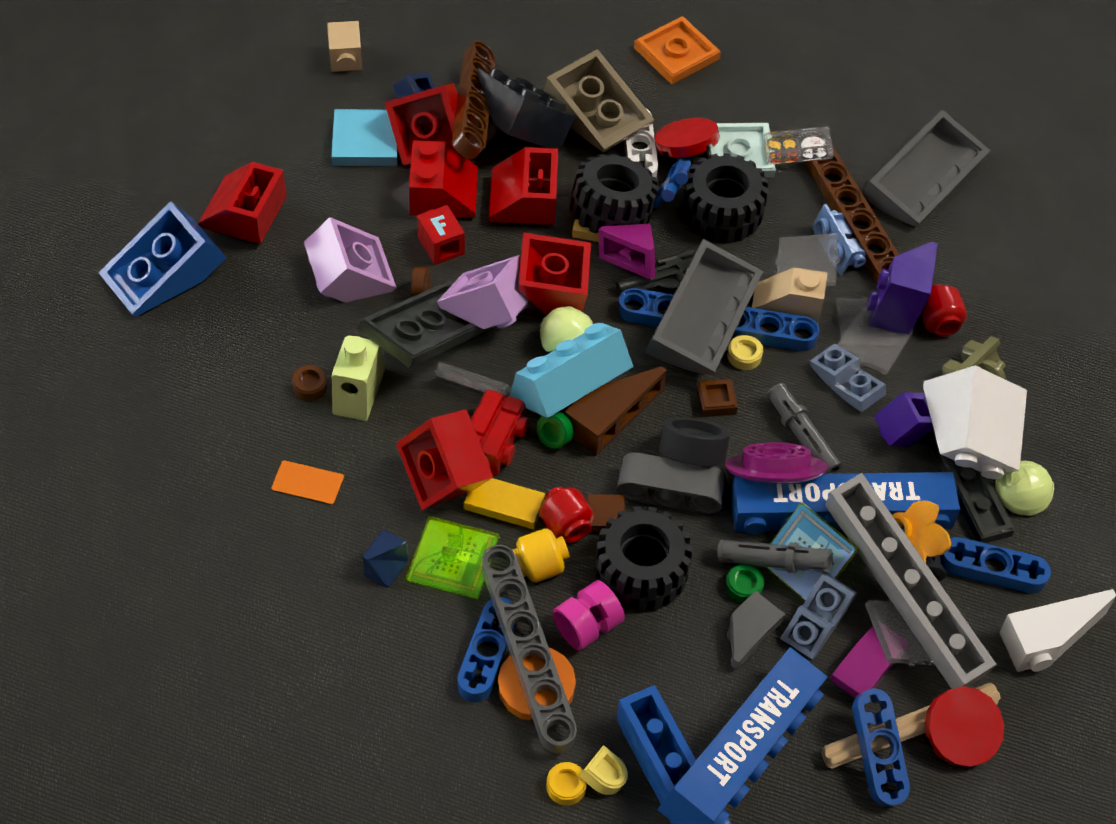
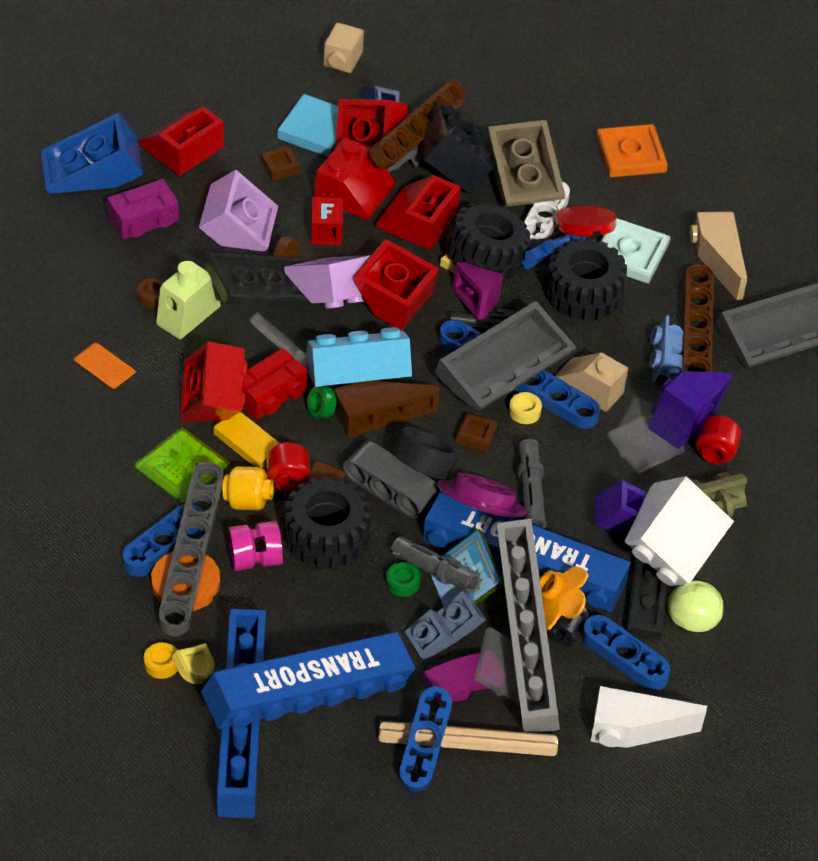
camera: 25 degrees right, 5 degrees down
(248, 296) = (142, 209): none -> magenta brick
(353, 191) = (280, 163): none -> reddish brown tile
(385, 558) = (124, 441): dark blue slope -> none
(562, 325) = (378, 319): yellowish green piece -> none
(751, 625) = (384, 608): dark grey slope -> none
(798, 145) = (680, 262): clear tile -> none
(810, 253) = (631, 351): clear piece -> none
(815, 106) = (720, 249): none -> tan slope
(843, 375) = (599, 459): sand blue slope -> none
(964, 726) = (508, 755): red tile -> none

